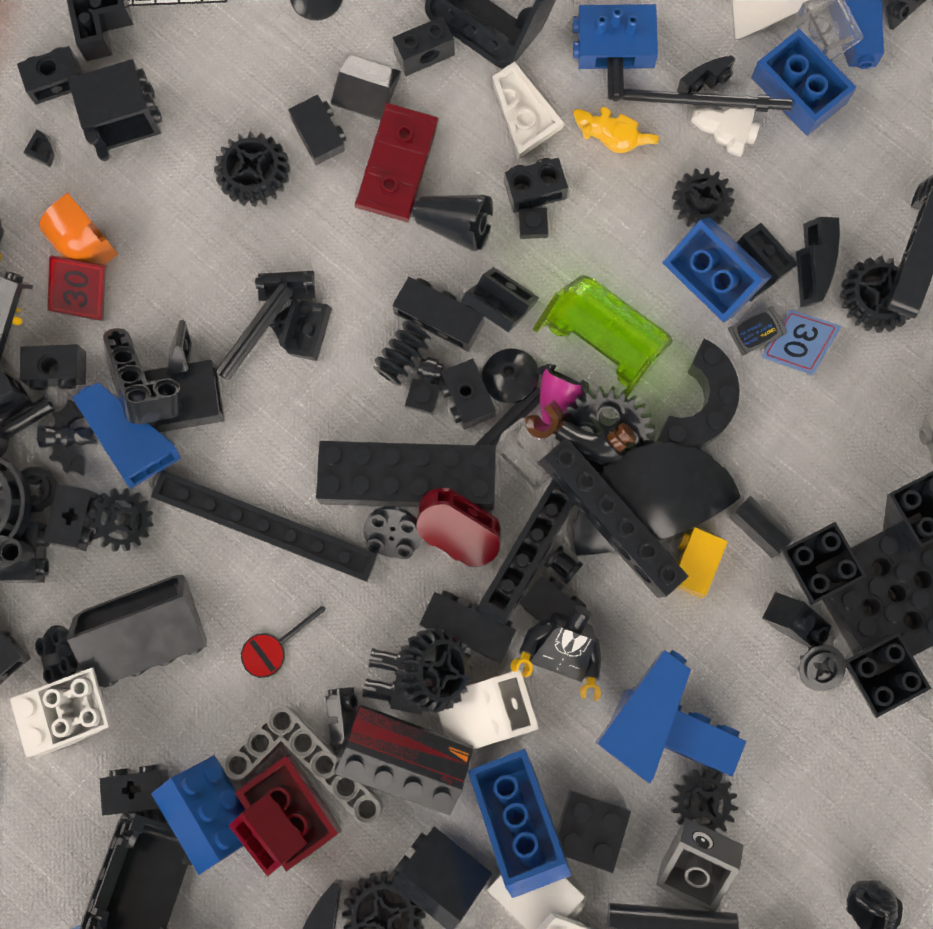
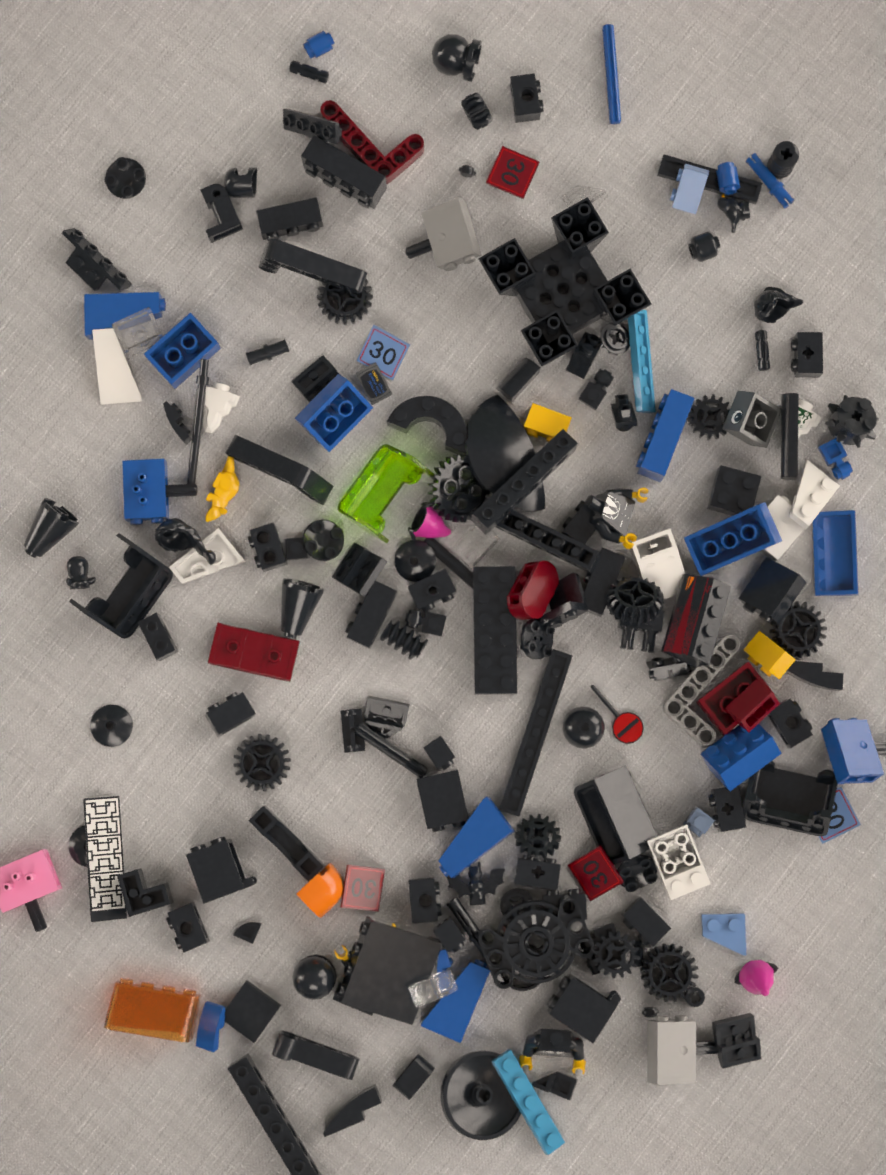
camera: 95 degrees left, 5 degrees up
(63, 597) = (595, 873): none -> dark red piece
(120, 748) = (698, 822): none -> sand blue brick
(122, 214) = (287, 842): none -> black arch
(139, 399) = (431, 835): black beam -> none
(180, 350) = (410, 804): black slope -> none
(230, 896) = (795, 735): none -> black brick
(241, 391) = (440, 753): none -> black brick
(267, 592) = (583, 727): none -> black cylinder
(345, 866) = (769, 655): none -> yellow brick
(364, 87) = (189, 681): black slope -> none
(439, 574) = (566, 603): none -> black bracket
(543, 256) = (323, 540): none -> black dish
(554, 72) = (177, 535): none -> black hair
(563, 564) = (553, 516): black bush -> none
(597, 447) = (473, 493): piece -> none
(637, 201) = (281, 468): none -> black beam
(646, 717) = (659, 454): blue slope -> none
(700, 186) = (282, 428): black gear -> none
(712, 672) = (623, 413): none -> black hips
(740, 632) = (594, 394): none -> black plate
(788, 704) = (641, 362): none -> dark azure plate
(801, 192) = (267, 352): none -> black pin
(804, 889) = (762, 350): none -> black axle
(818, 259) = (320, 340): black slope -> none

